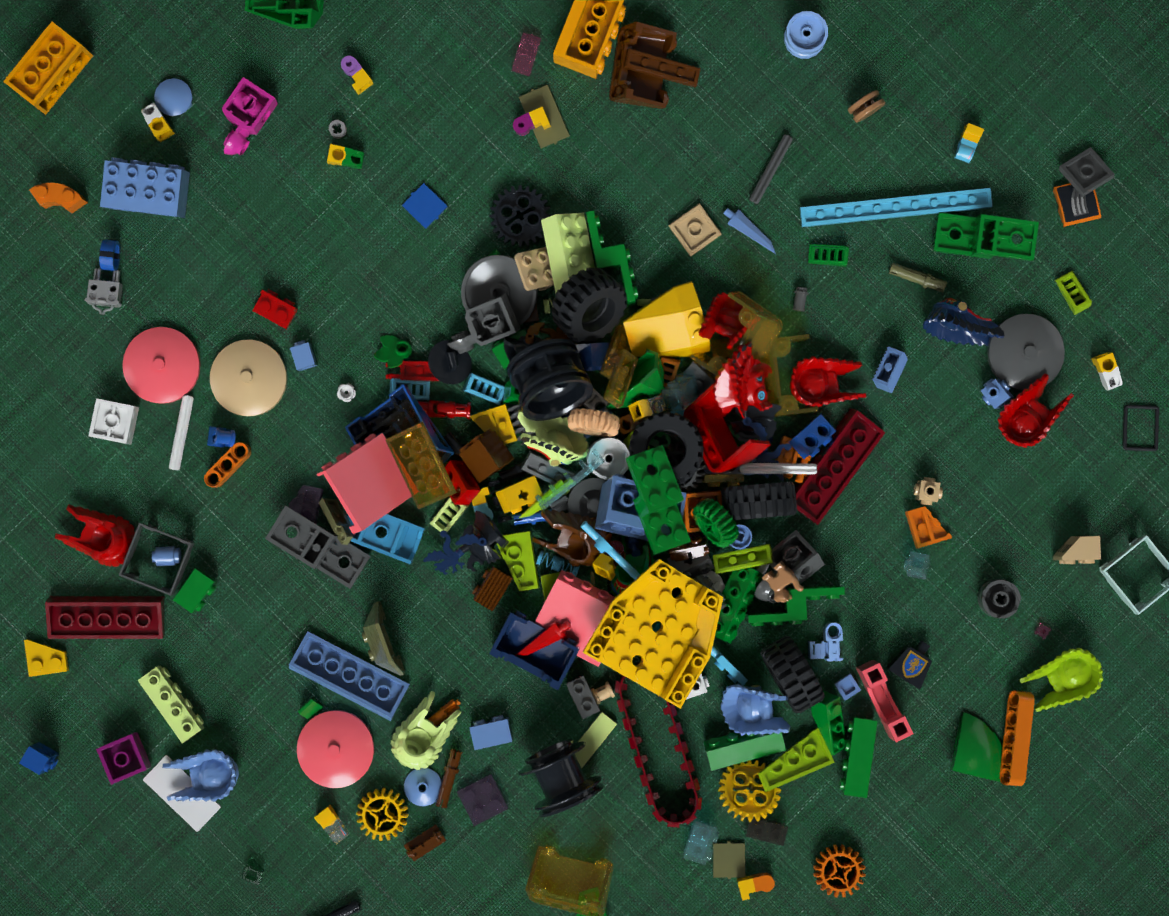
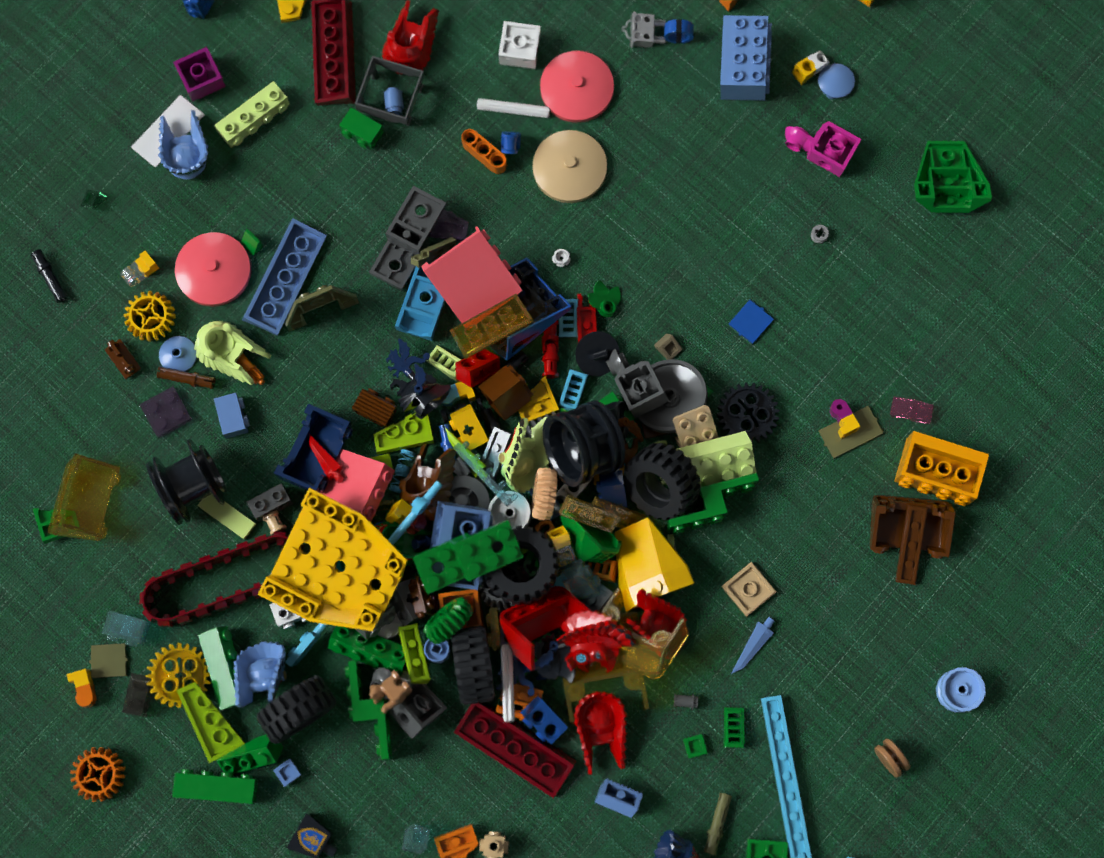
camera: 85 degrees right, 10 degrees down
(275, 309) = (637, 187): red bracket -> none
(303, 355) = (594, 214): medium blue brick -> none
(345, 157) = (792, 241): leg -> none
(354, 69) = (876, 248): leg -> none
(446, 291) = (668, 346): none -> dark tan slope
(771, 169) = (818, 663): dark grey axle -> none
(830, 648) = (326, 749): light blue piece -> none
(843, 293) = (695, 746): none -> green tile
(891, 718) = (268, 813): coral arch -> none

